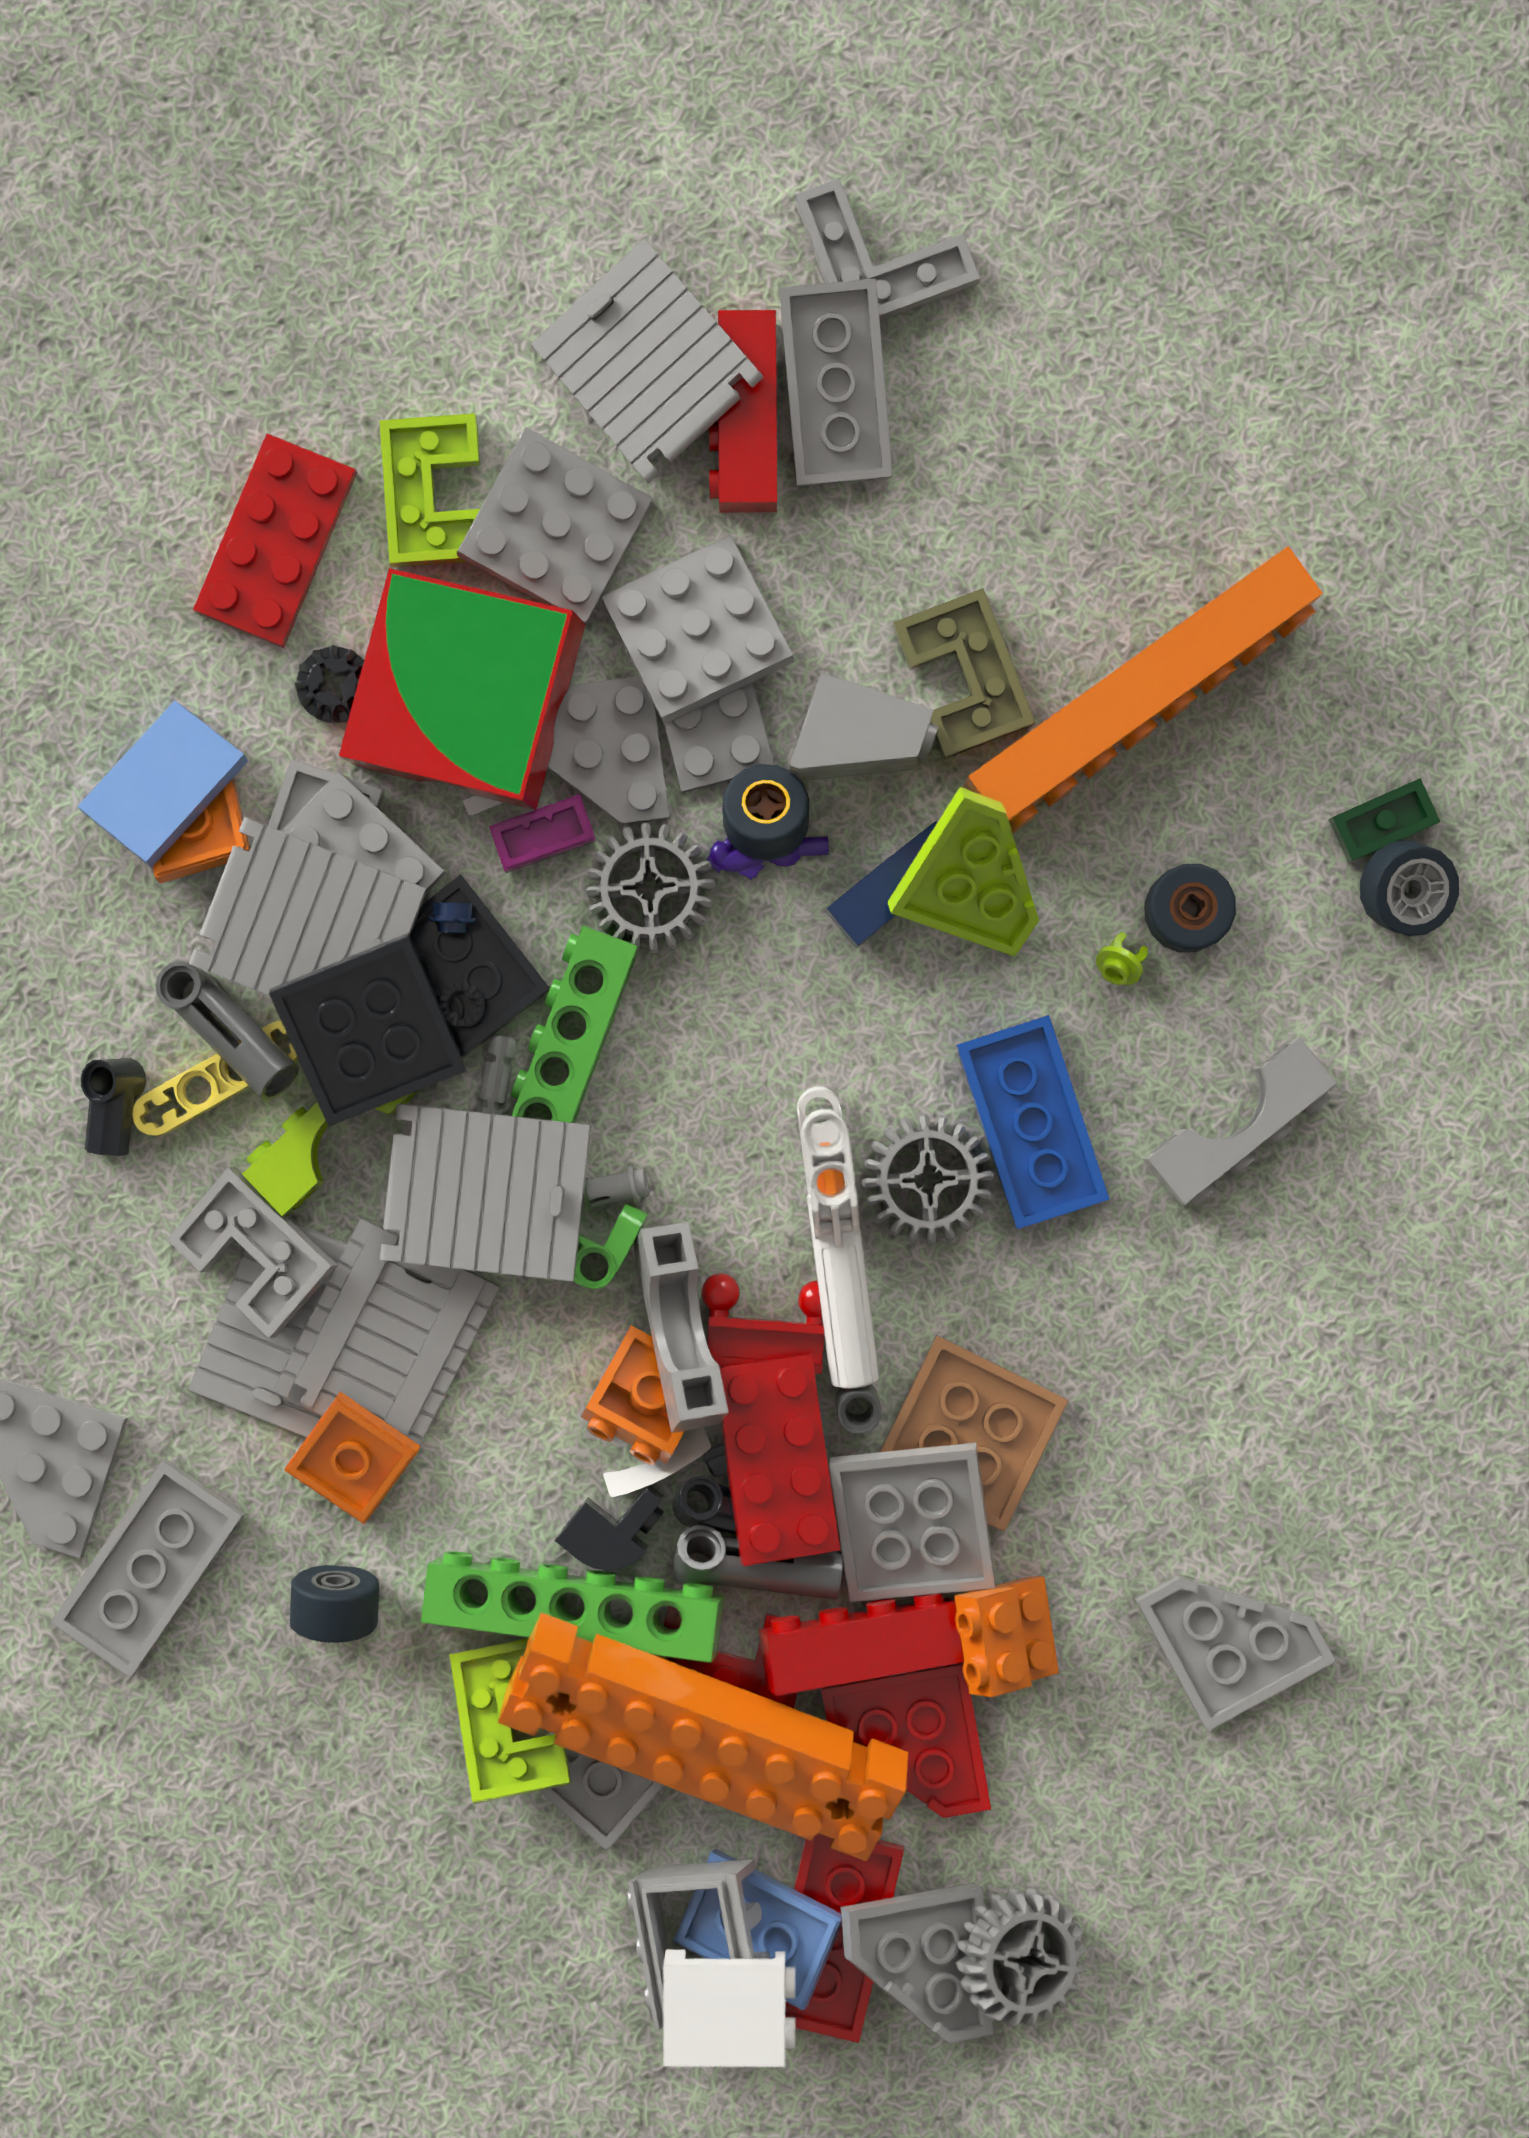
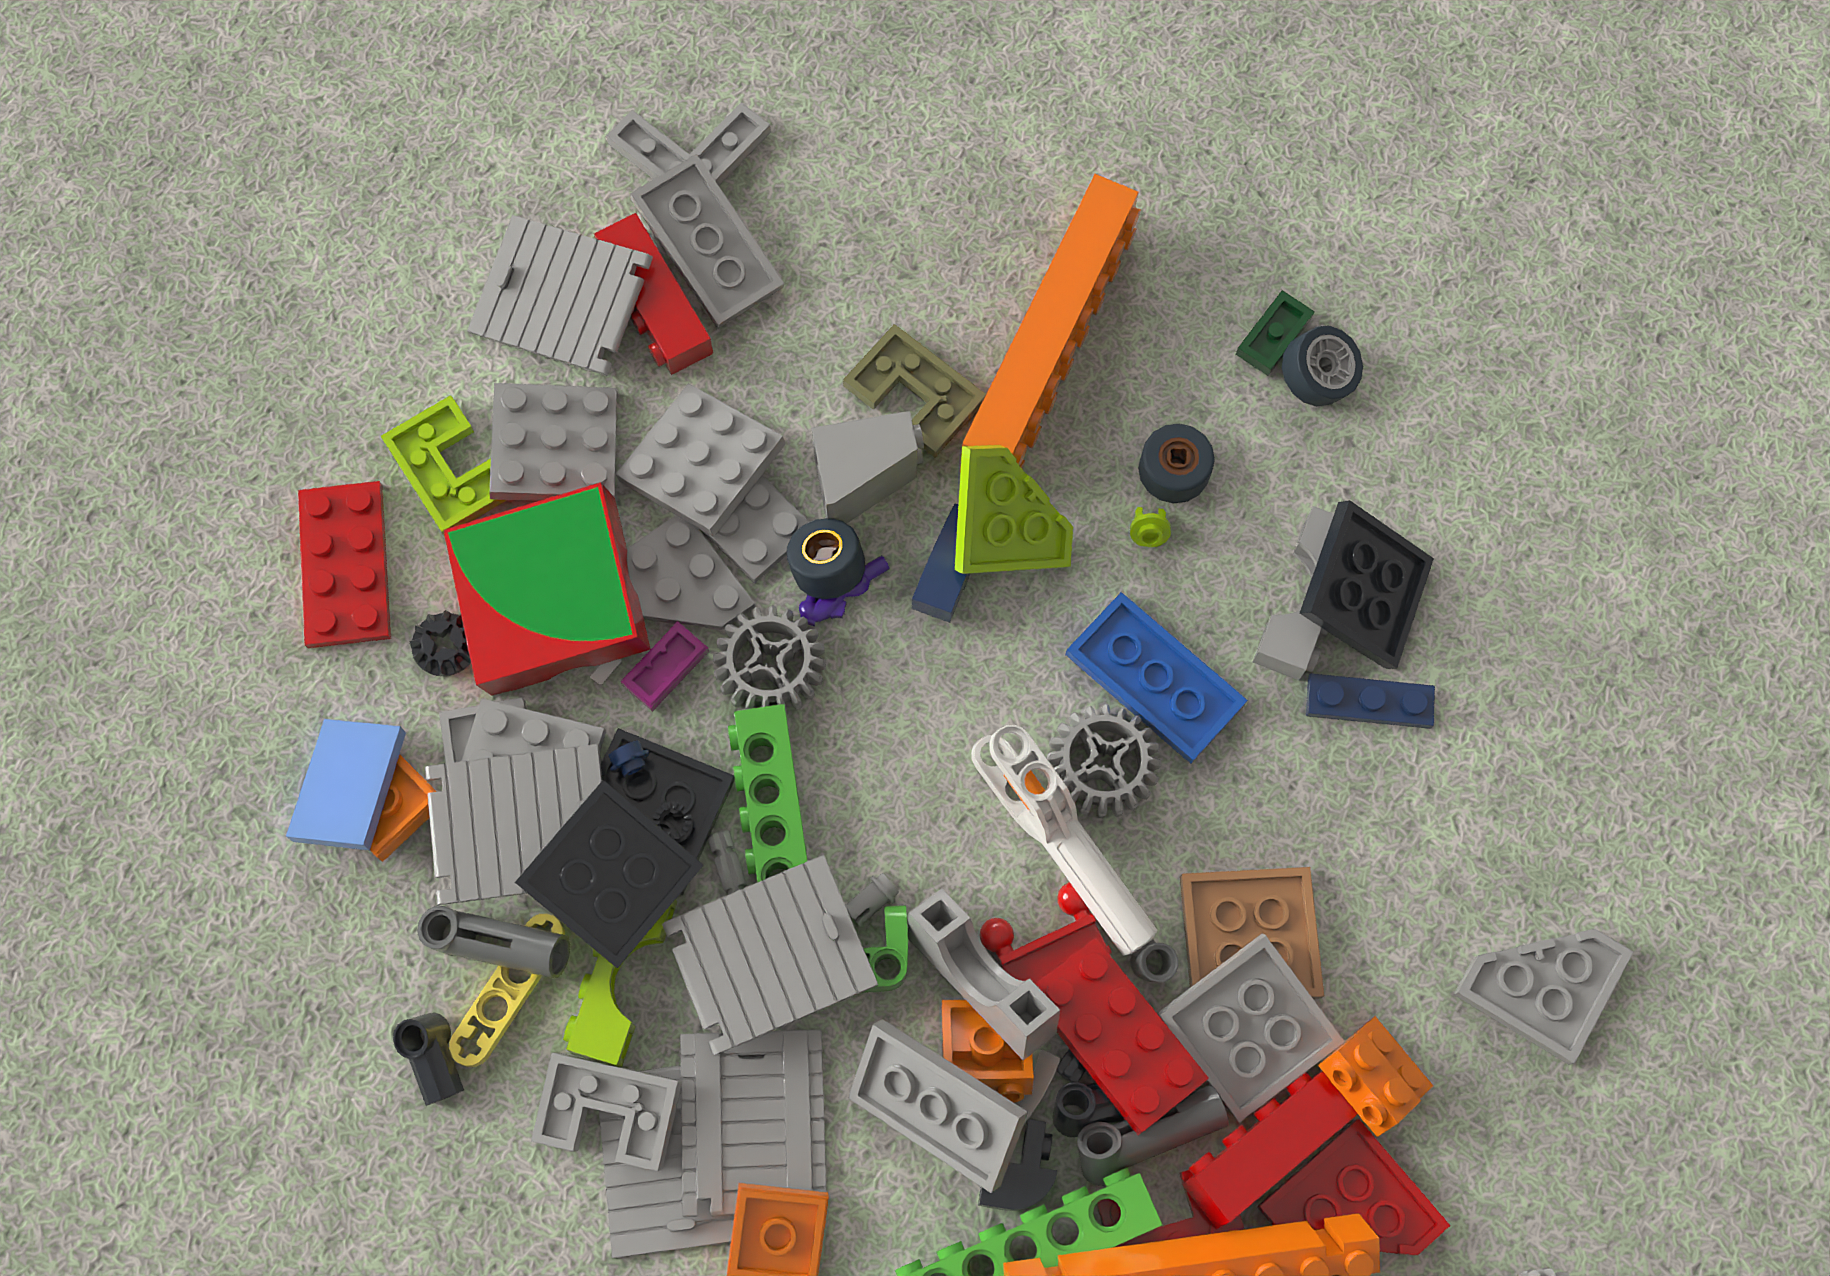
camera: 30 degrees left, 15 degrees down
(564, 1429) = (937, 1105): none -> light grey plate
(1236, 1267) = (1370, 701): none -> dark blue plate
(1303, 1152) = (1367, 585): none -> black plate

